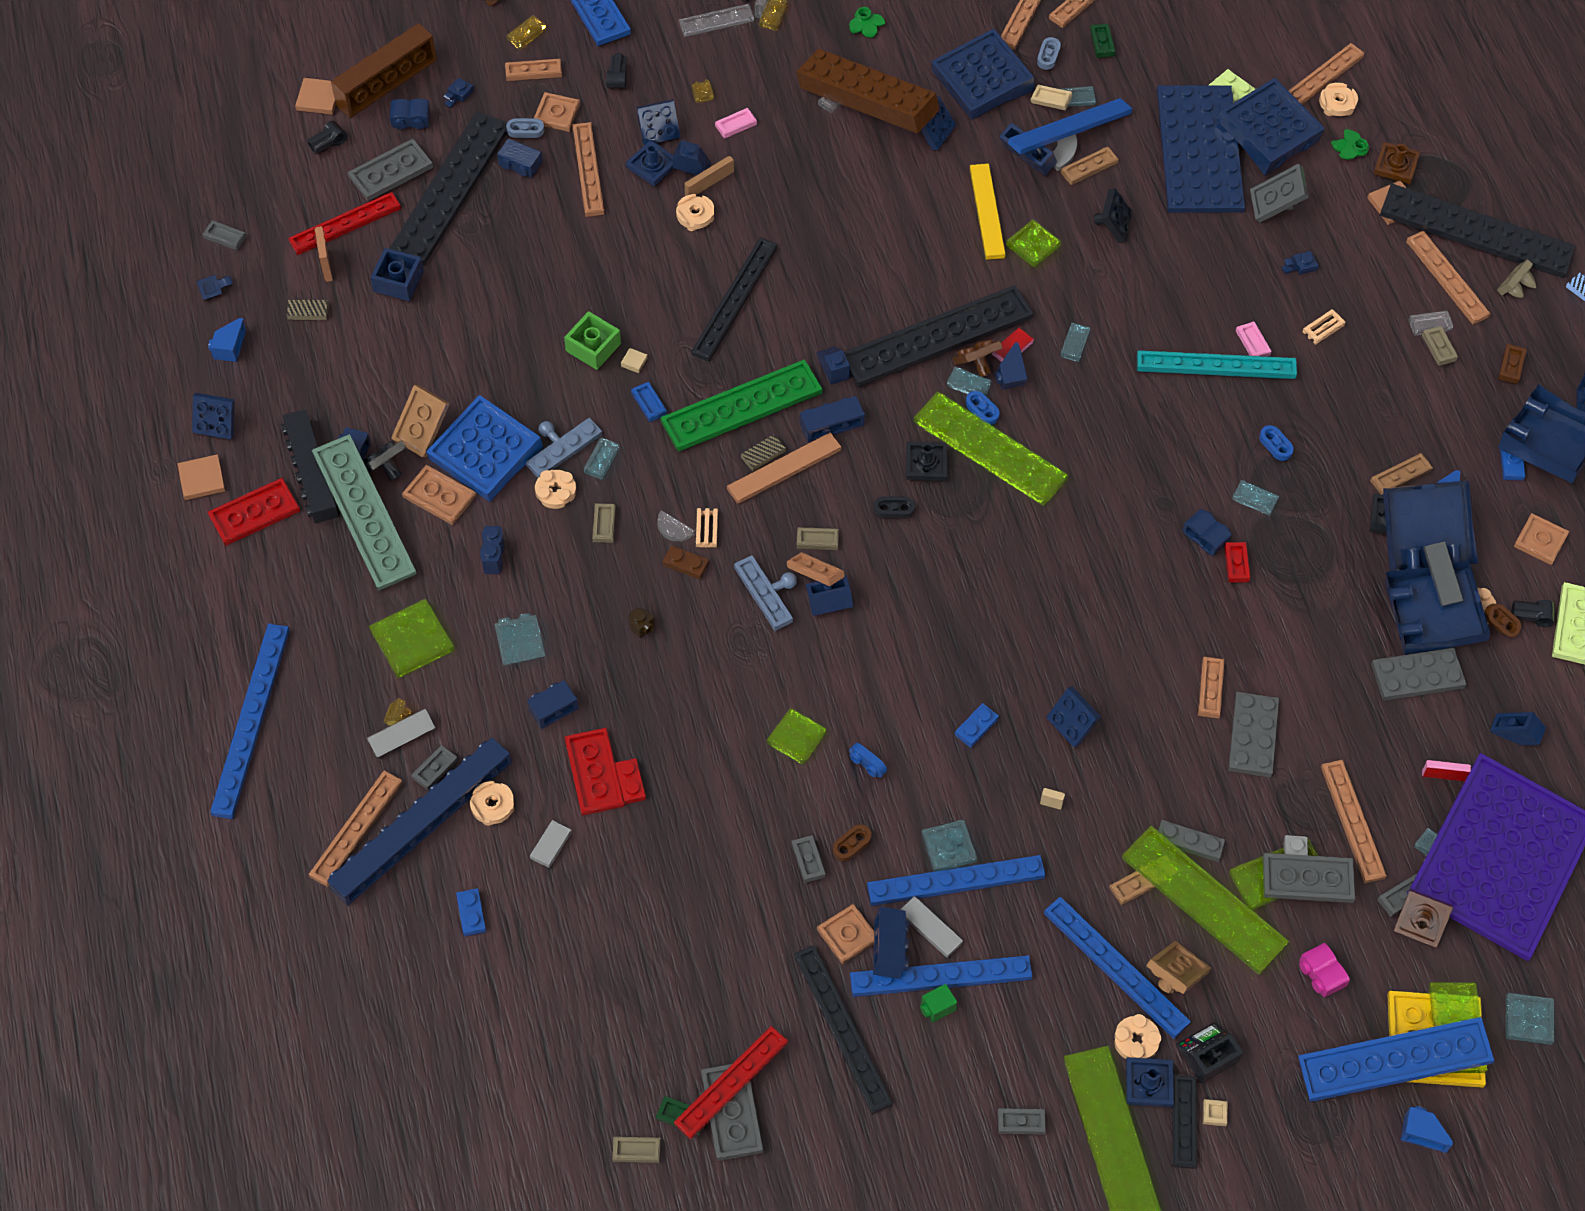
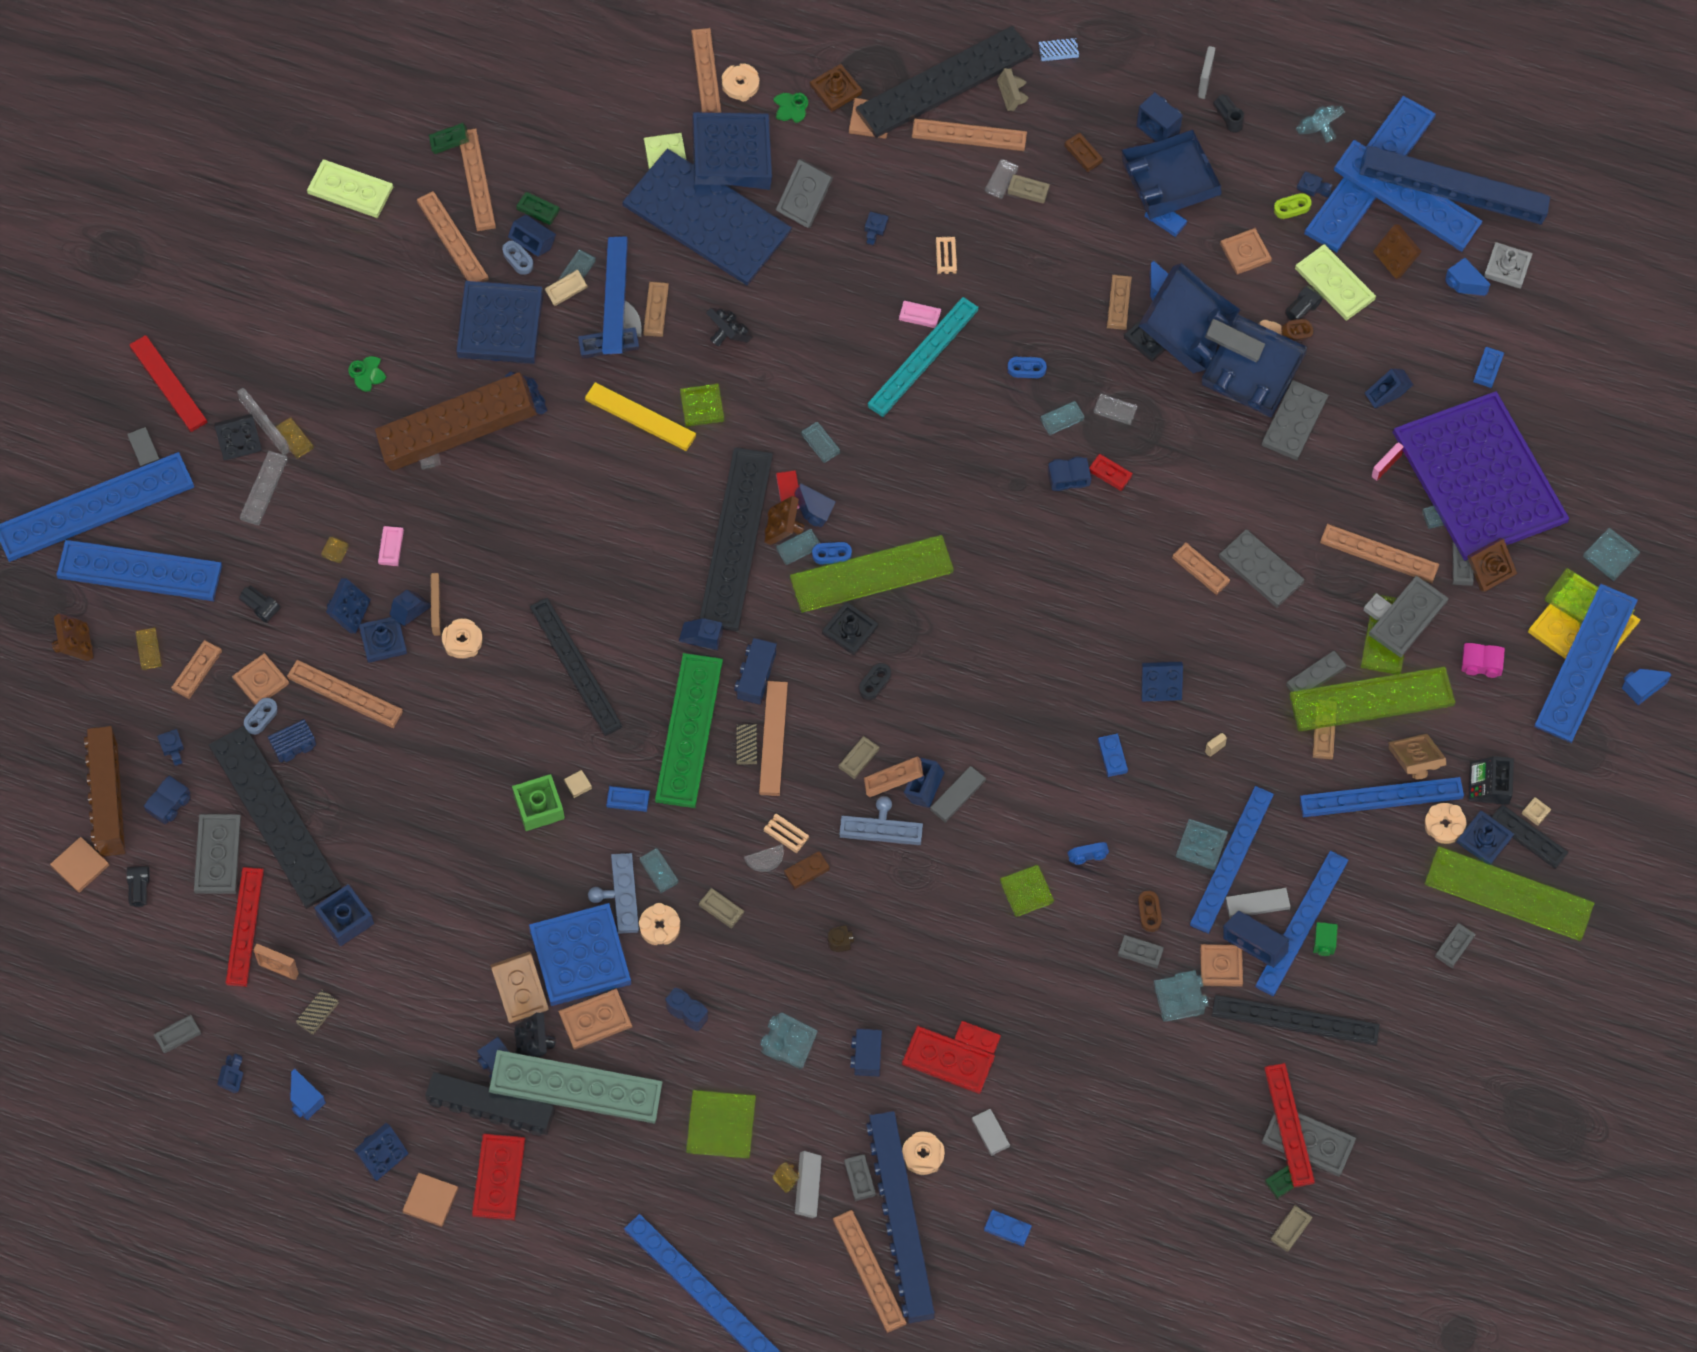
camera: 55 degrees left, 5 degrees up
(791, 917) = (1181, 996): none -> clear light blue plate
(843, 630) = (957, 794): none -> dark grey tile
(1073, 48) = (531, 235): none -> dark blue brick
(1300, 531) = (1115, 409): none -> clear tile

